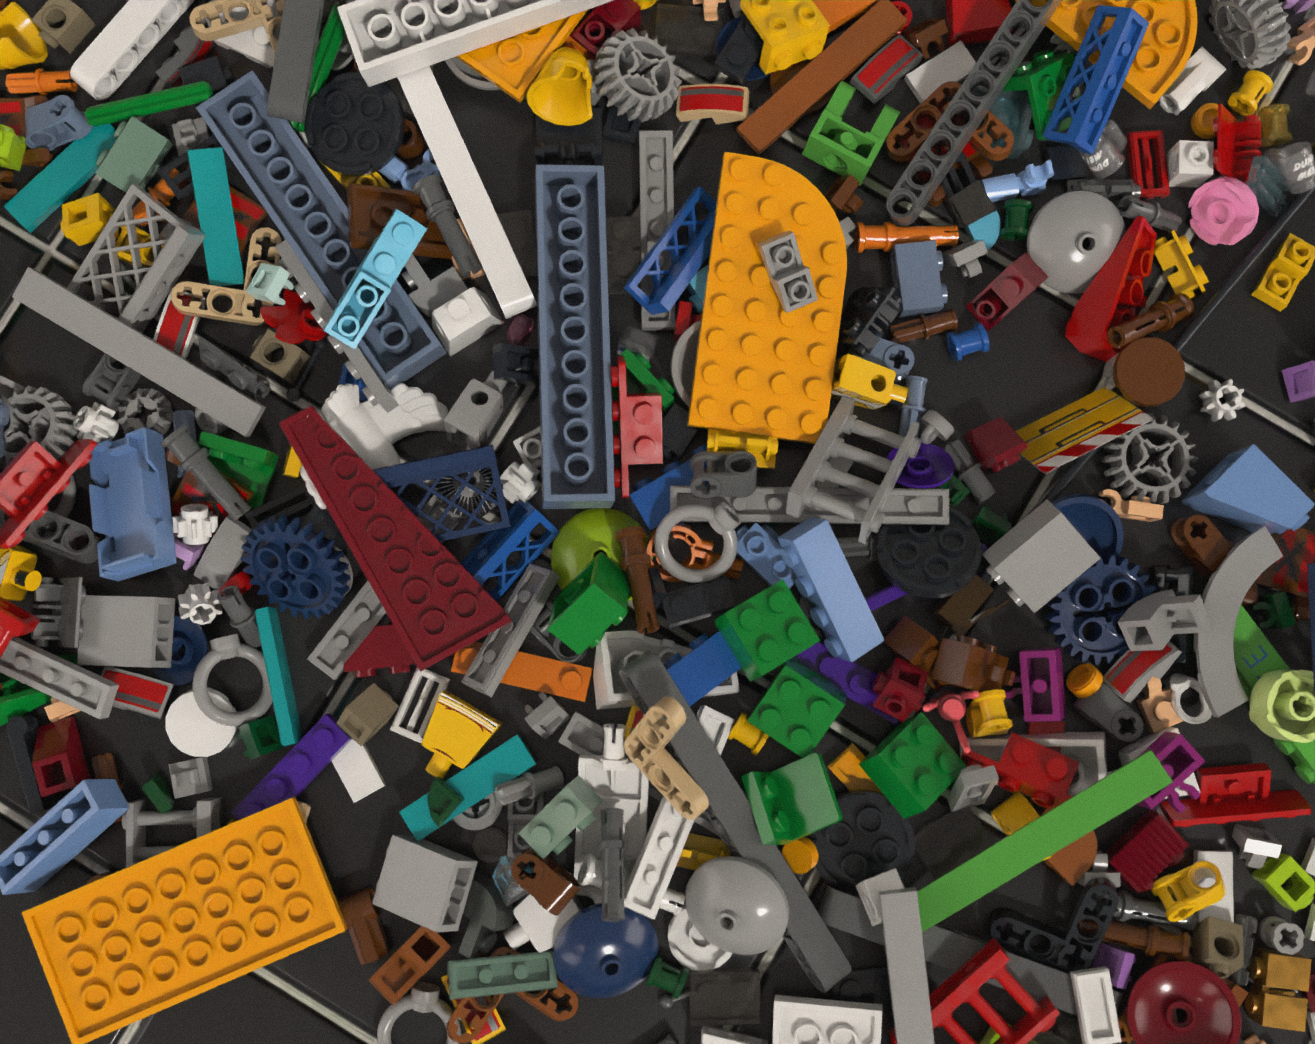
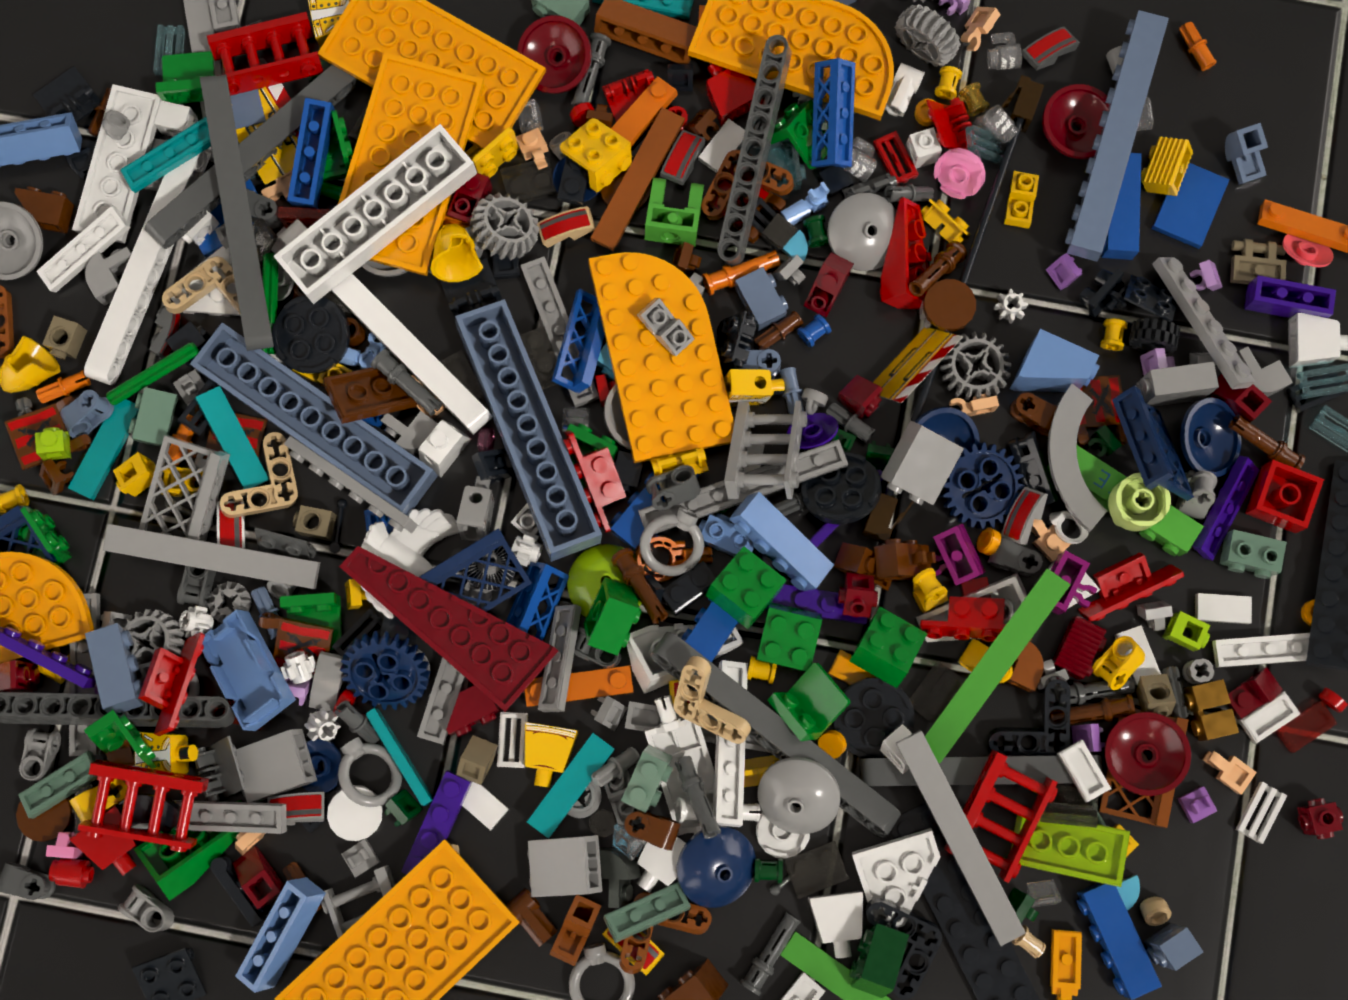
camera: 20 degrees left, 5 degrees down
(159, 792) = (342, 877): dark green tile -> none
(195, 459) = (283, 618): dark grey pin -> none
(268, 283) = (289, 472): light aqua tile -> none
(293, 320) = (316, 492): red plate -> none
(374, 278) = (368, 439): medium azure slope -> none
(442, 801) = (556, 801): dark green tile -> none
(953, 708) = (902, 596): coral plant -> none
(972, 787) = (936, 646): light grey plate -> none
(1161, 615) = (1023, 474): light grey brick -> none

